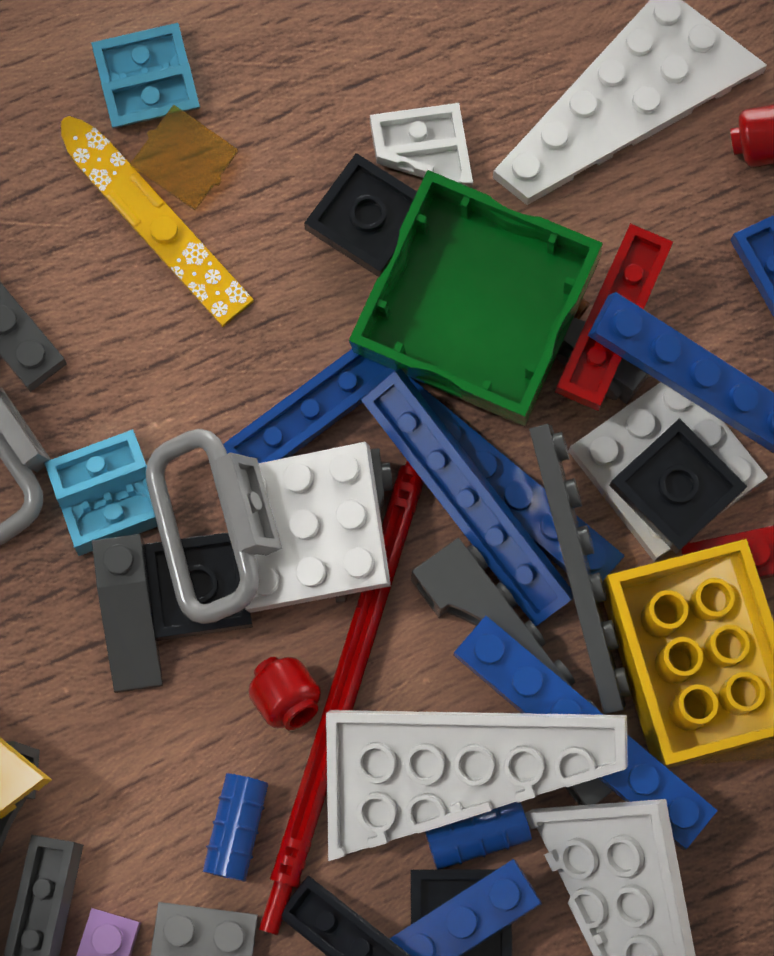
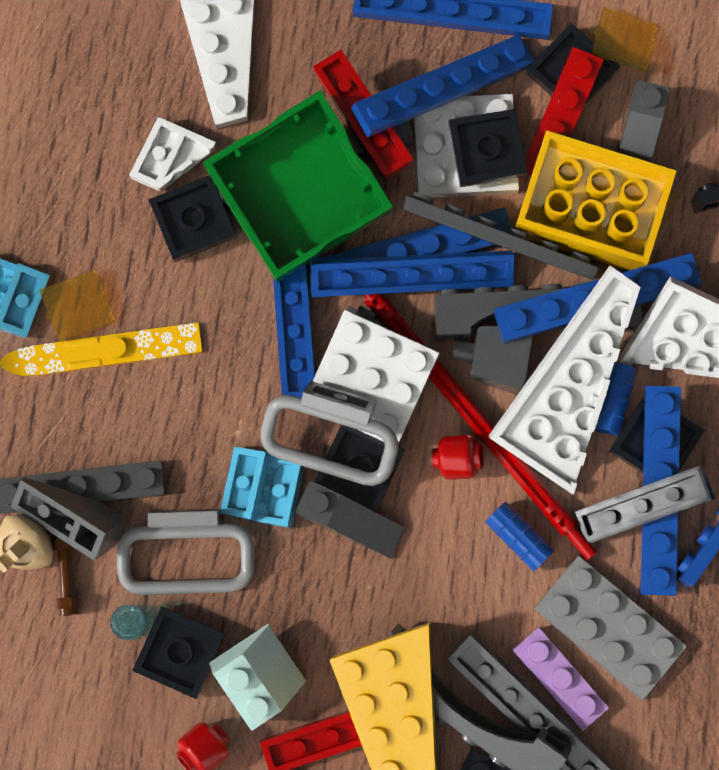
camera: 50 degrees left, 5 degrees up
(426, 663) = (494, 362): none -> dark grey torso

